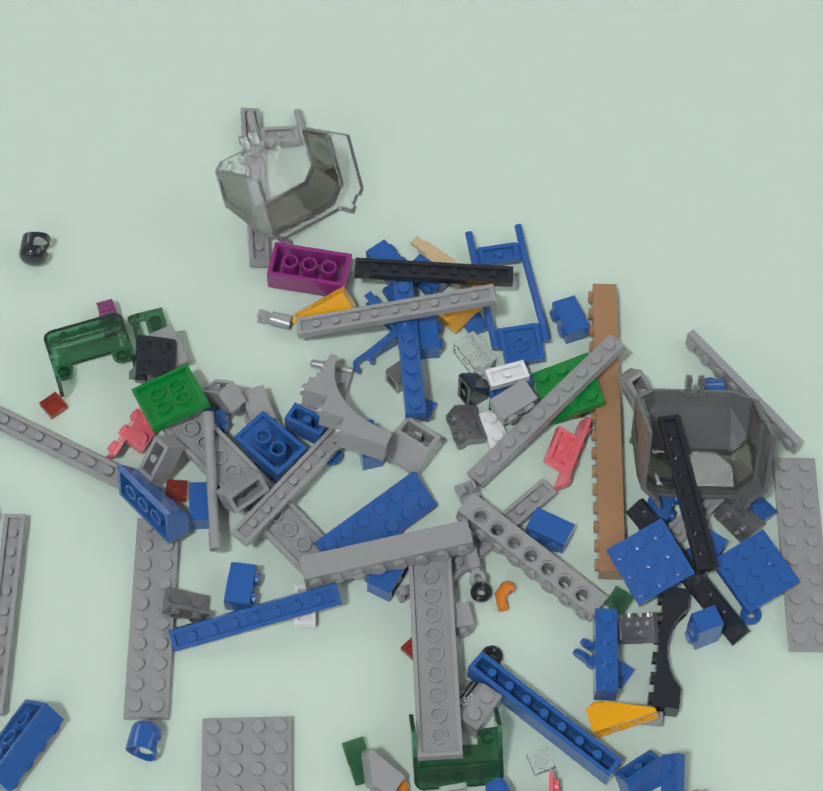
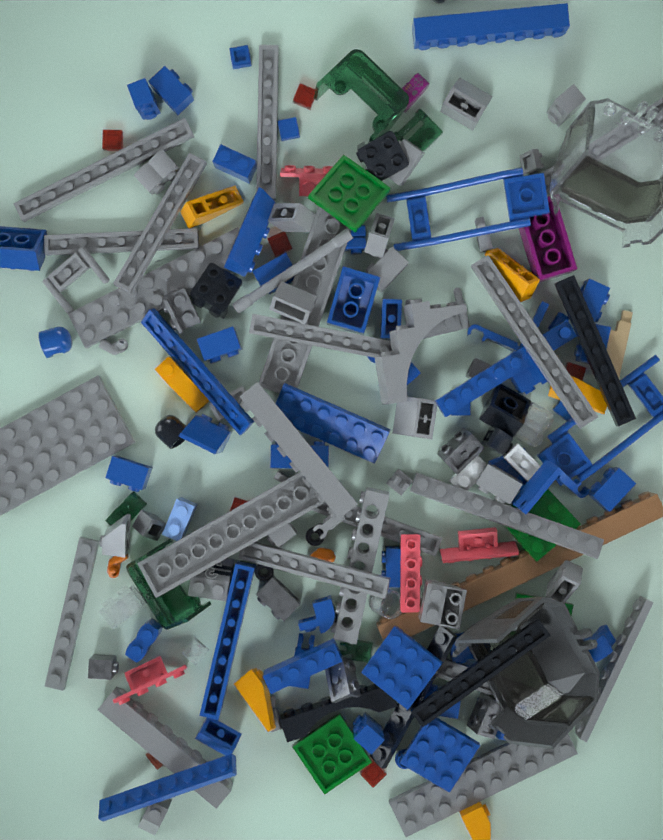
camera: 65 degrees right, 30 degrees up
(39, 564) = (157, 172): none -> light grey brick
(74, 432) = (288, 129): none -> blue tile
(77, 490) = (235, 163): none -> blue brick
(83, 692) = (70, 272): none -> light grey plate
(84, 630) = (116, 242): none -> light grey plate
(92, 581) = (160, 223): none -> light grey plate
(93, 232) = (490, 26): none -> blue brick
(102, 532) = (210, 206): none -> light orange slope
(150, 279) = (465, 103): none -> light grey slope
(185, 689) = (115, 348): none -> light grey arm
(187, 564) = (215, 290): none -> black bracket
(202, 202) = (565, 105): none -> light grey brick
(233, 252) = (531, 161): none -> light grey tile
(258, 640) = (181, 384): none -> light orange slope
(263, 263) = (524, 198): none -> blue plate
(300, 671) = (168, 431): none -> black helmet
(320, 735) = (128, 473): none -> blue brick
(325, 636) = (207, 434): none -> blue slope
(384, 737) = (149, 525): none -> flat silver brick
(393, 706) = (179, 519): none -> light blue brick
(444, 371) = (505, 410): none -> black slope
(511, 595) = (316, 569): none -> light grey plate
(526, 653) = (278, 598): none -> flat silver brick
(527, 358) = (541, 482): none -> blue hinge
(561, 515) = (410, 573): none -> coral bracket
(565, 618) = (323, 616): none -> blue brick
(577, 559) = (381, 605): none -> clear helmet
(603, 496) = (442, 604): none -> light grey slope
(713, 678) = (331, 753): none -> green plate
(752, 651) = (373, 774): none -> clear red tile

